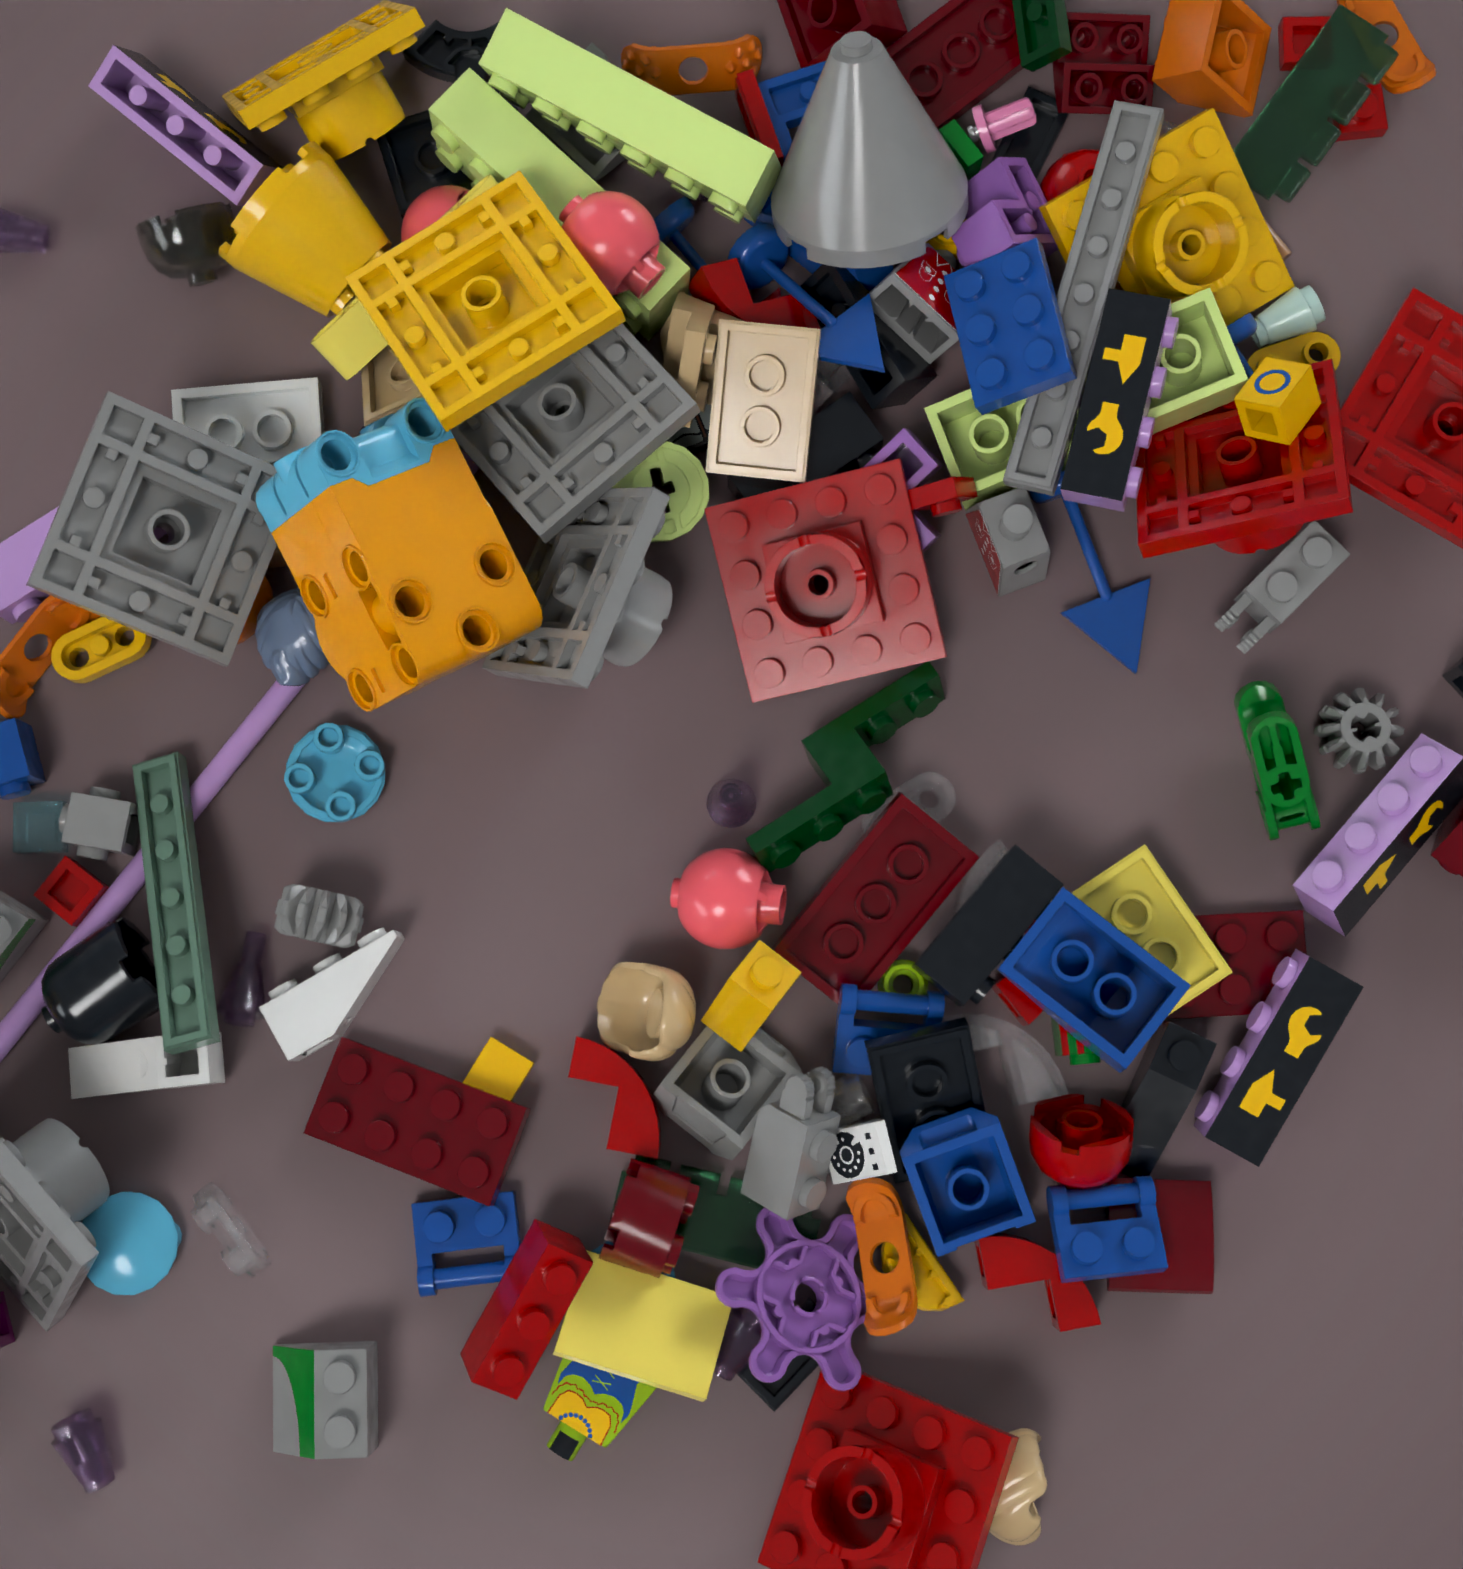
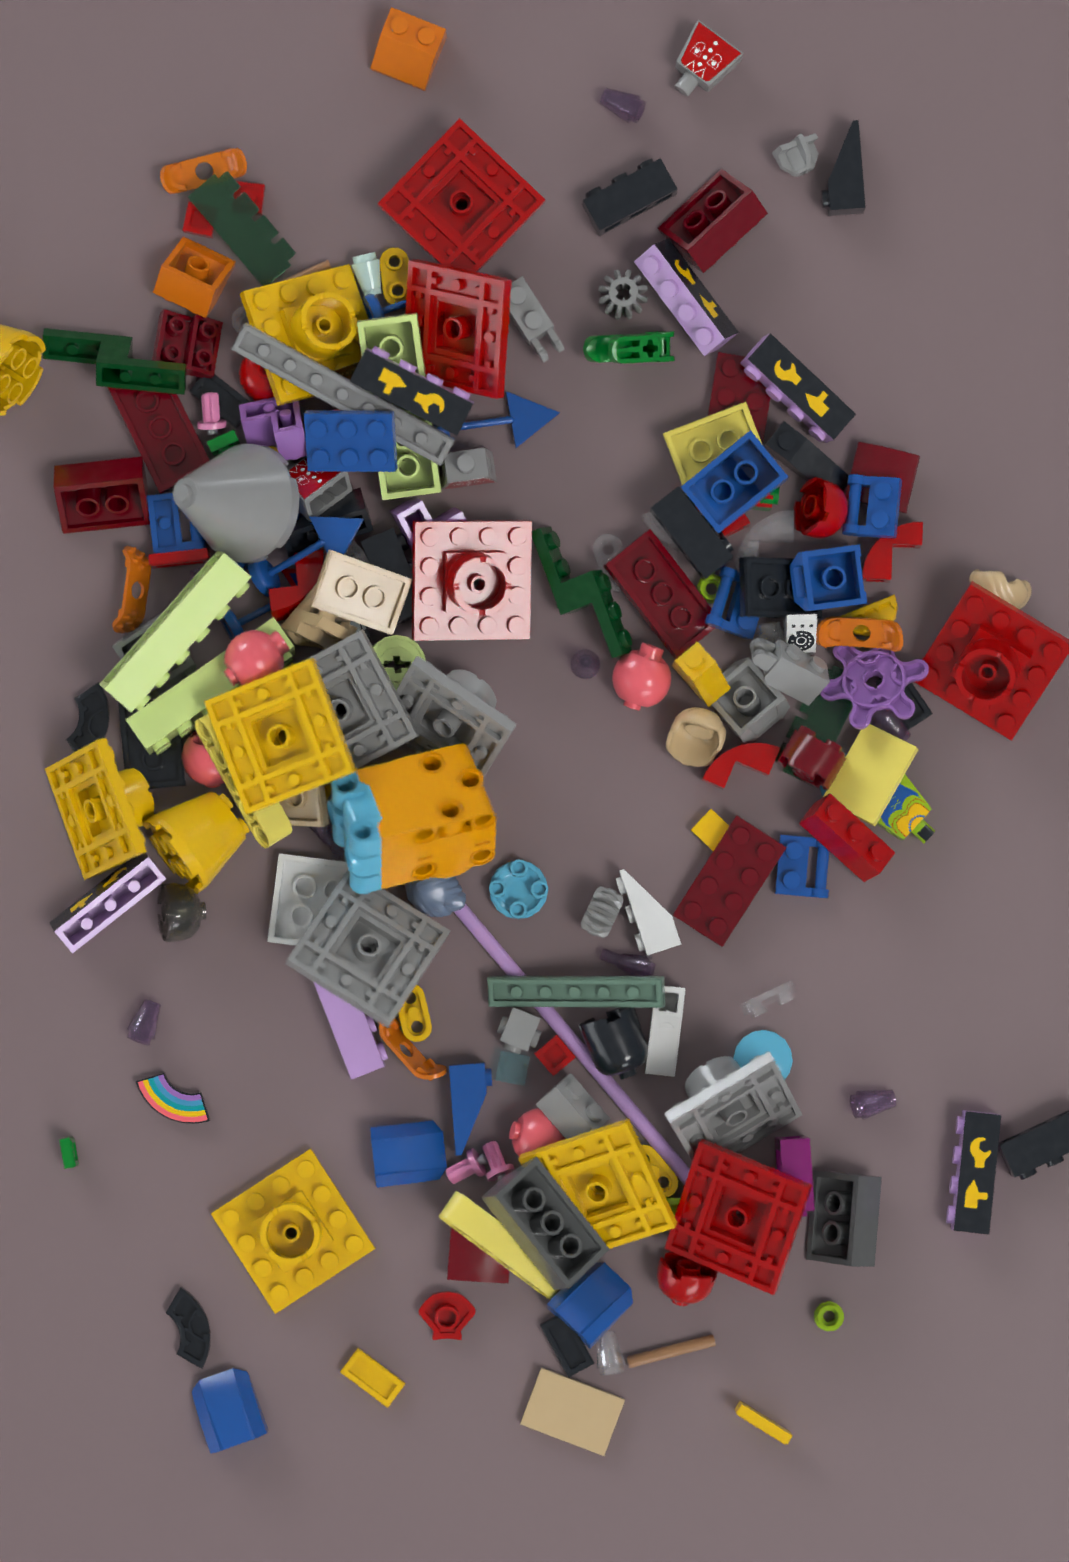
camera: 80 degrees left, 5 degrees up
(325, 1399) = (872, 963): light grey slope -> none
(943, 496) = (439, 501): red plate -> none
(1277, 400) = (431, 300): yellow brick -> none

